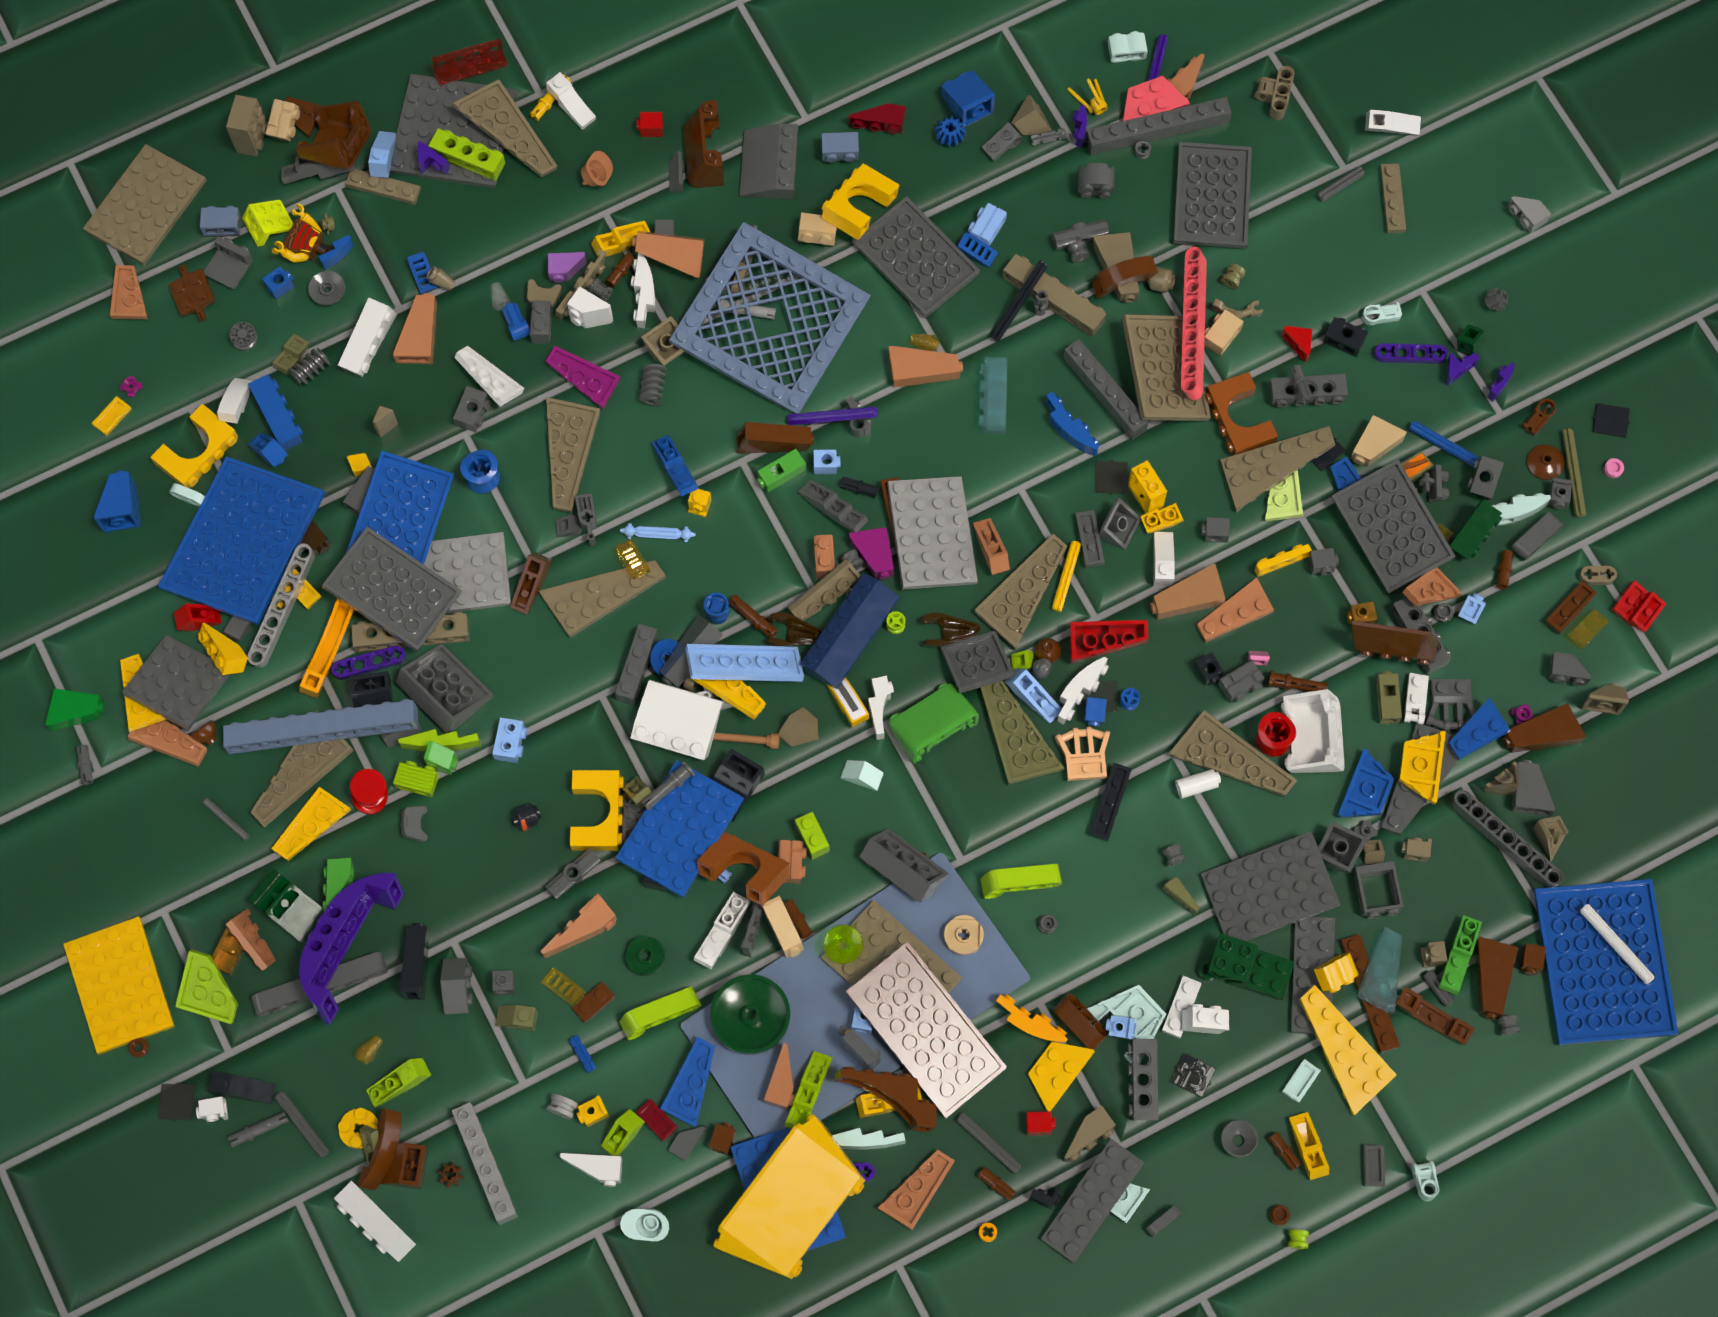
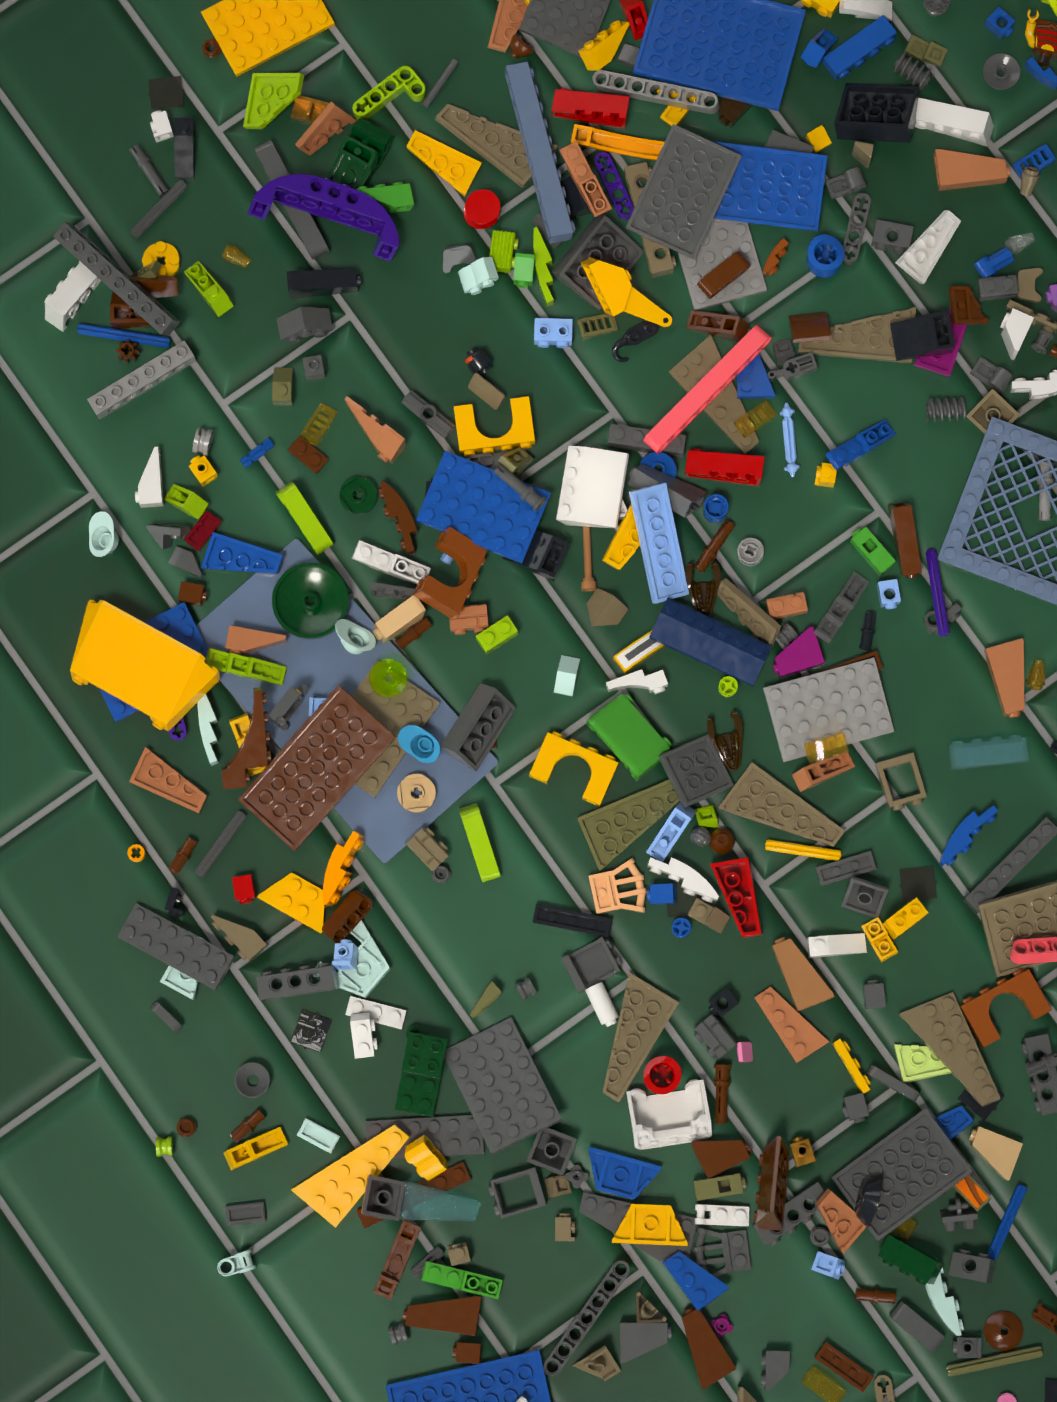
camera: 85 degrees right, 10 degrees up
(228, 873) = (387, 96): none -> lime beam
(284, 670) = (591, 107): none -> red wedge
(345, 402) = (877, 113): none -> black slope
(361, 682) = (584, 179): none -> nougat slope
(373, 1170) = (116, 279): none -> dark grey brick
(410, 443) = (845, 184): none -> dark grey plate
(432, 1178) = (123, 335): none -> blue axle
(437, 803) = (478, 275): none -> light aqua brick
(458, 439) = (856, 228): none -> dark grey beam
(473, 521) = (772, 262): none -> dark orange slope
(482, 566) = (724, 274): none -> reddish brown beam
(485, 669) = (617, 295): none -> yellow slope
(512, 712) = (587, 335): none -> olive slope
(549, 495) = (809, 327): none -> reddish brown slope
(555, 351) = (965, 307): none -> reddish brown wing
(558, 814) = (486, 391): none -> dark tan slope
(578, 391) = (922, 336): none -> black slope
(585, 558) = (754, 382): none -> blue wing
(597, 596) = (707, 389): none -> coral beam
(627, 338) = (992, 376): none -> dark grey plate
(651, 1160) = (164, 533): none -> dark grey slope
(666, 917) = (397, 510): none -> reddish brown slope
(676, 593) = (724, 467): none -> red wedge
(764, 583) = (750, 552): none -> light grey wheel
(796, 973) = (353, 637): none -> light aqua piece
(915, 922) = (419, 743): none -> dark azure piece
(961, 753) = (556, 748): none -> yellow arch
(971, 537) = (826, 748): none -> clear yellow slope
(1016, 491) = (896, 762): none -> dark tan window
(1021, 932) = (426, 848): none -> dark tan brick
(1120, 672) = (708, 915): none -> dark tan slope
(1156, 789) = (591, 964): none -> dark grey panel
(1302, 525) = (893, 1083): none -> dark grey beam
(1358, 692) = (720, 1155): none -> reddish brown slope
(1374, 1017) = (383, 1198): none -> dark grey slope
(1424, 559) = (867, 1205): none -> black piece

